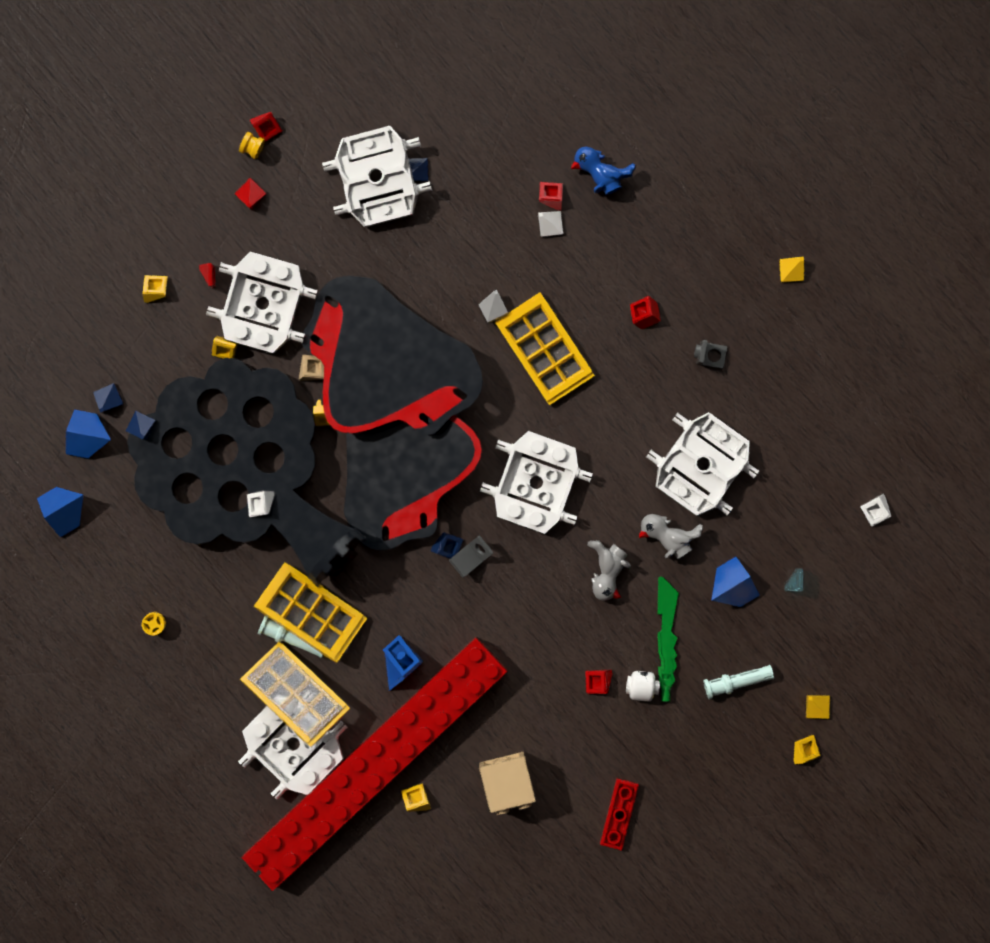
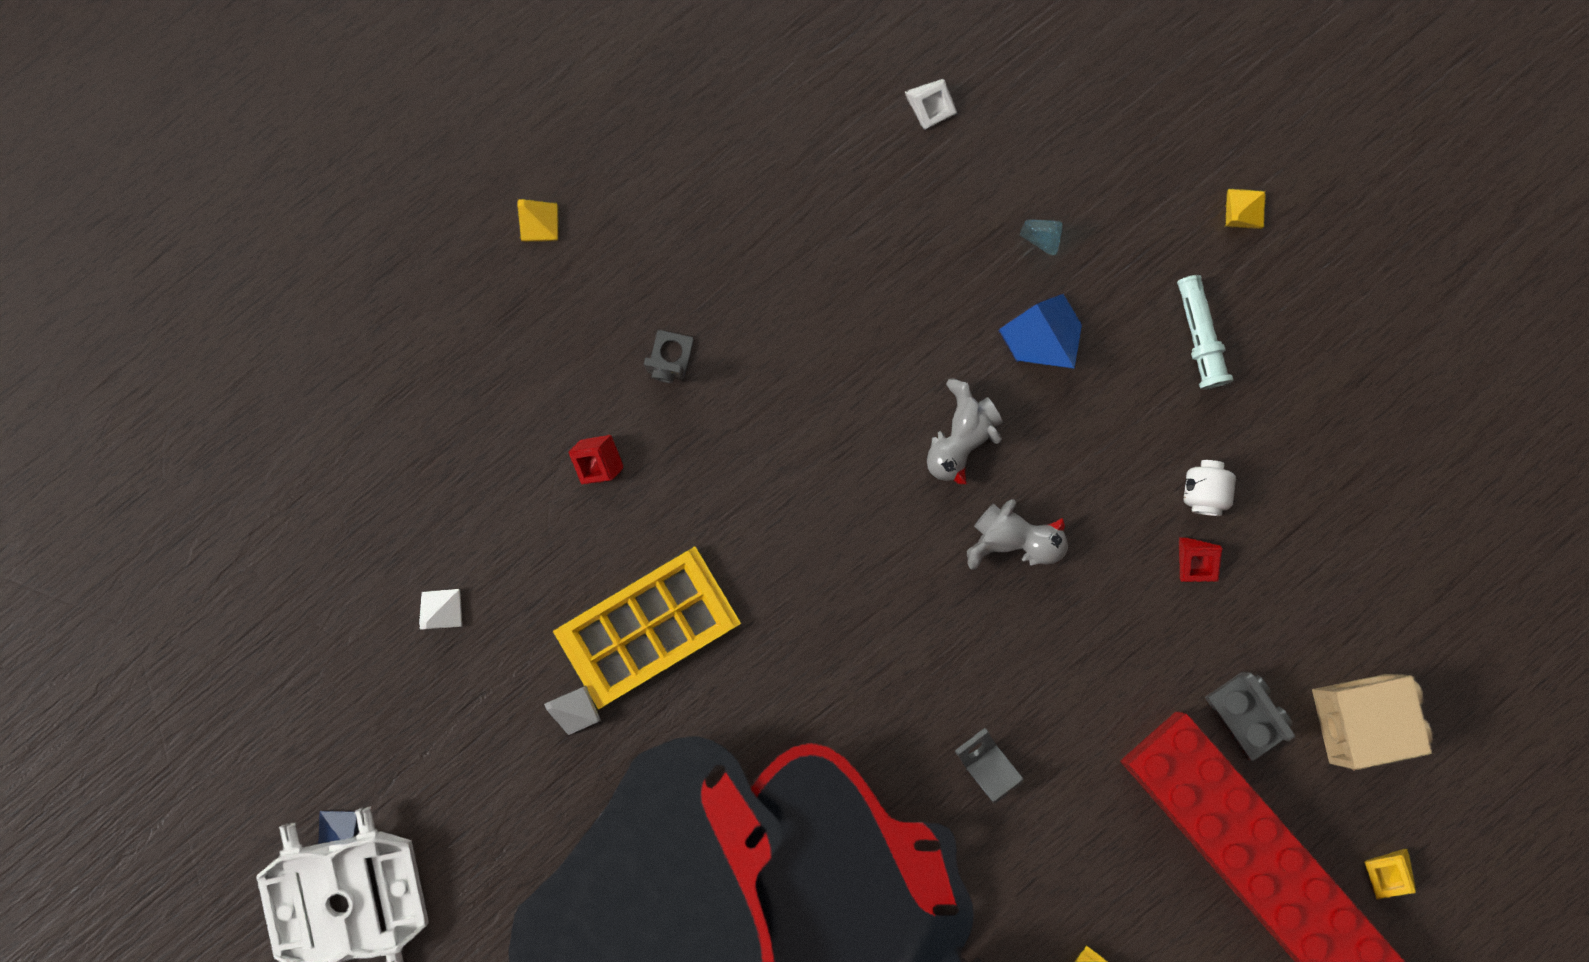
camera: 85 degrees left, 5 degrees down
(400, 661) = (1160, 890): blue slope -> none
(447, 545) = (968, 804): dark blue slope -> none
(506, 713) = (1250, 714): none -> dark grey bracket
(517, 482) = (863, 682): white piece -> none
(551, 194) = (393, 606): red slope -> none
(604, 175) = (365, 516): blue animal -> none
(621, 800) = (1398, 531): red tile -> none
(666, 639) = (1132, 446): green sword -> none
(685, 456) = (829, 400): white piece -> none
(806, 750) = (1317, 229): yellow slope -> none

